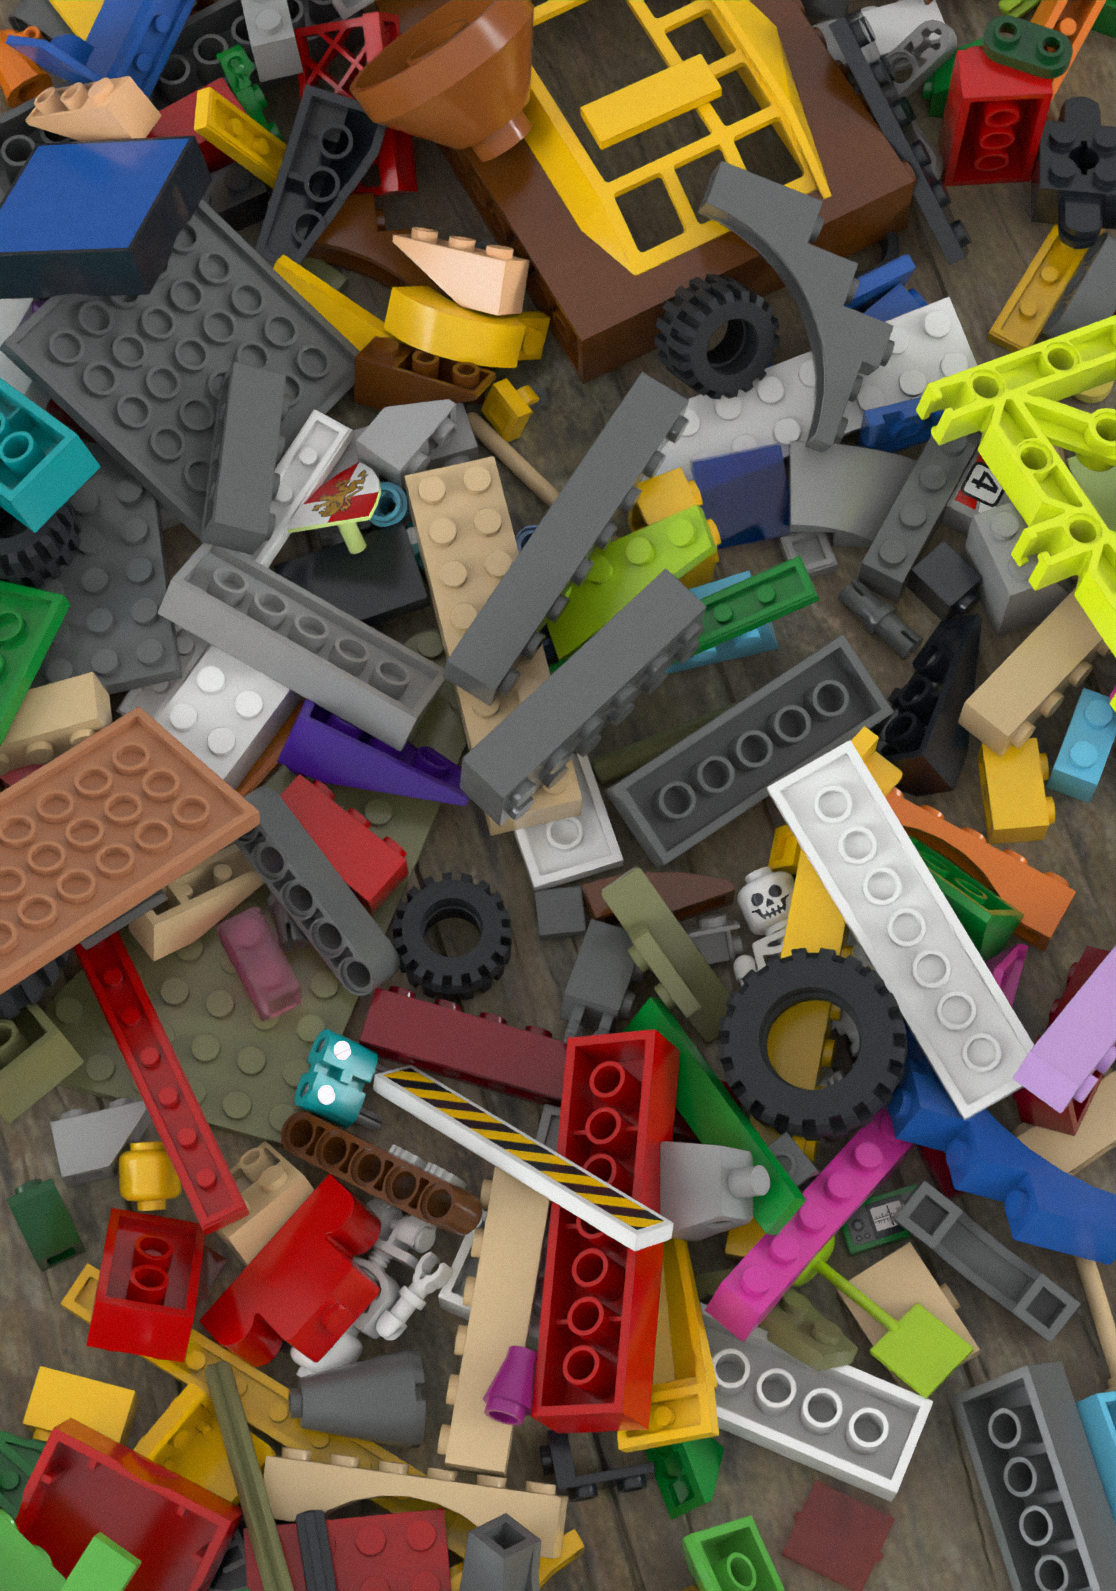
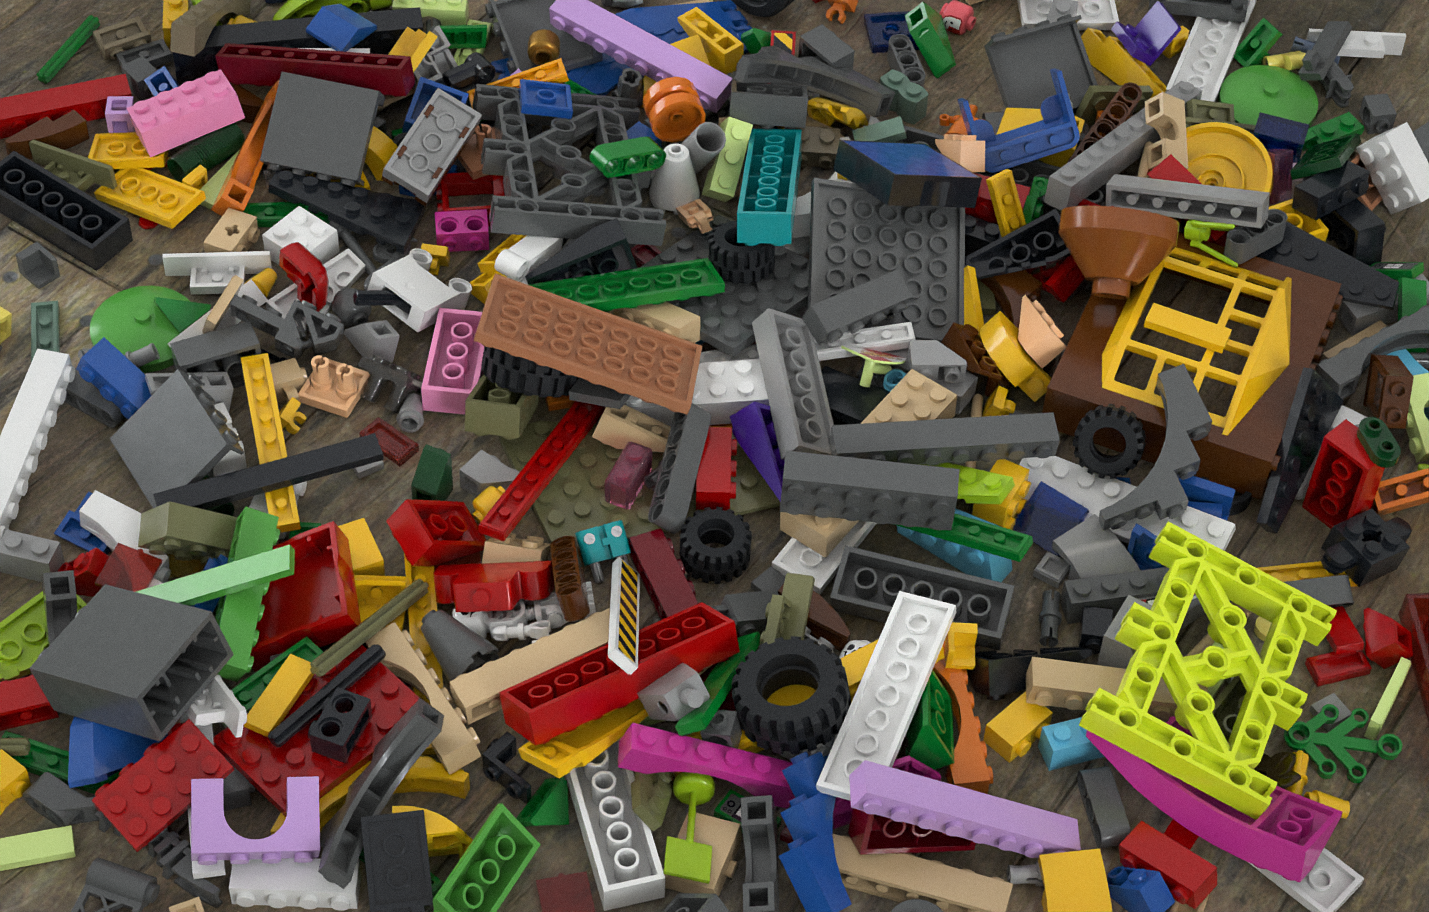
camera: 50 degrees right, 20 degrees down
(512, 1388) = (504, 677): magenta cone -> none

